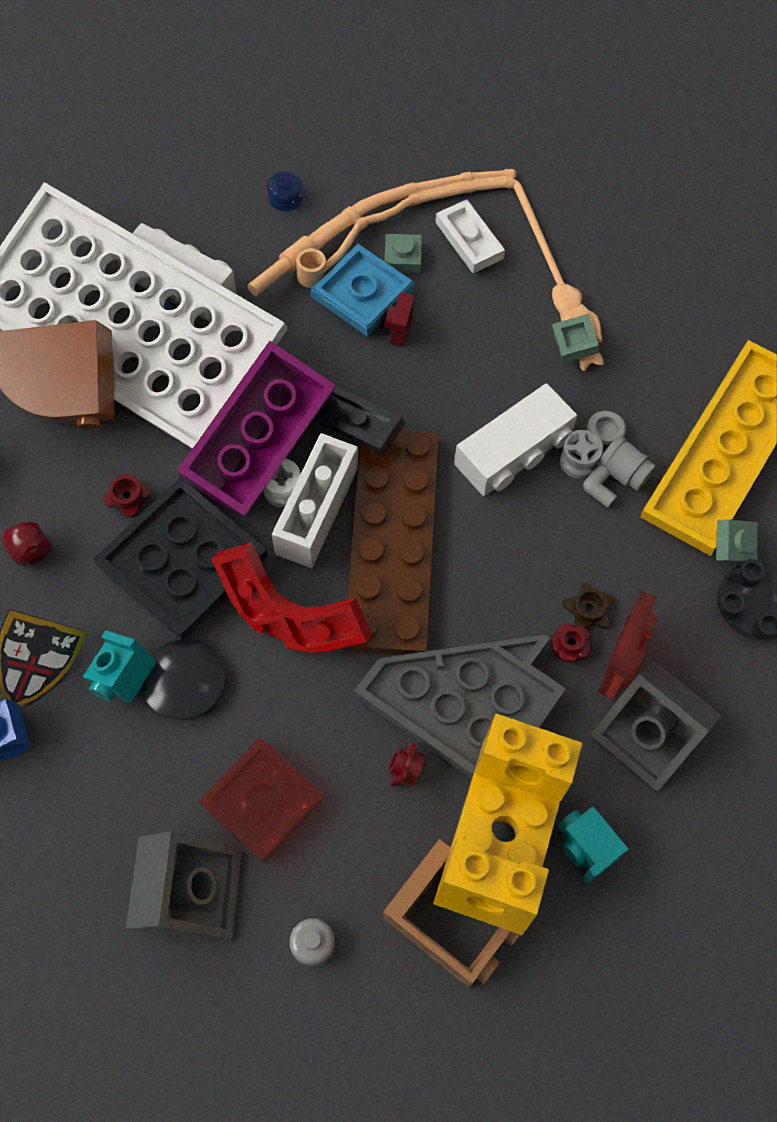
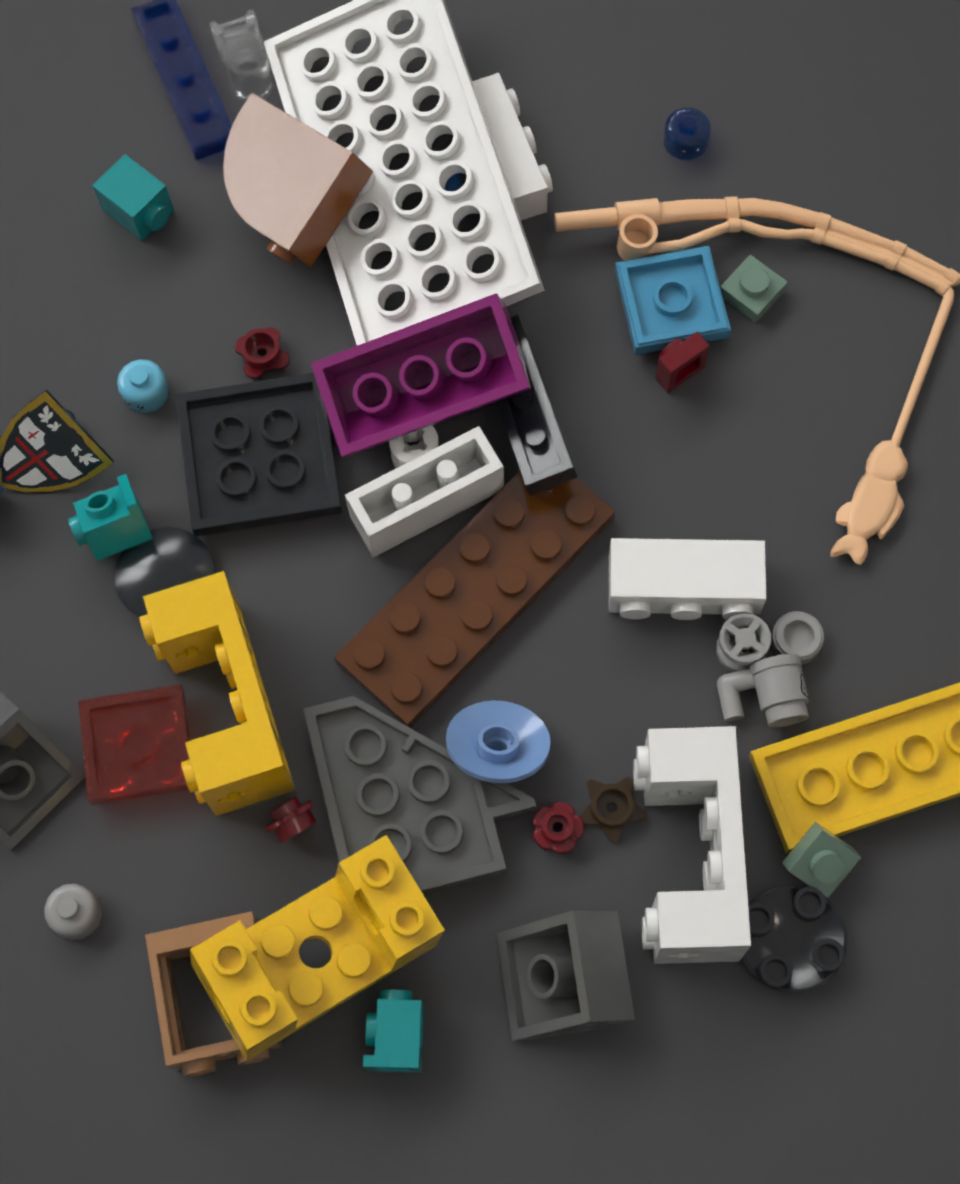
camera: 45 degrees right, 5 degrees up
(26, 543) = (130, 334): dark red piece -> none
(62, 571) = (143, 386): none -> medium azure piece
(253, 675) = (205, 625): none -> yellow plate
(266, 610) = (310, 613): red plate -> none
(470, 236) = (839, 319): white plate -> none
(493, 617) = (498, 741): none -> medium blue dish
(575, 338) = (845, 514): sand green plate -> none
(630, 645) = (614, 866): clear red plate -> none
(716, 605) = (696, 769): none -> white plate

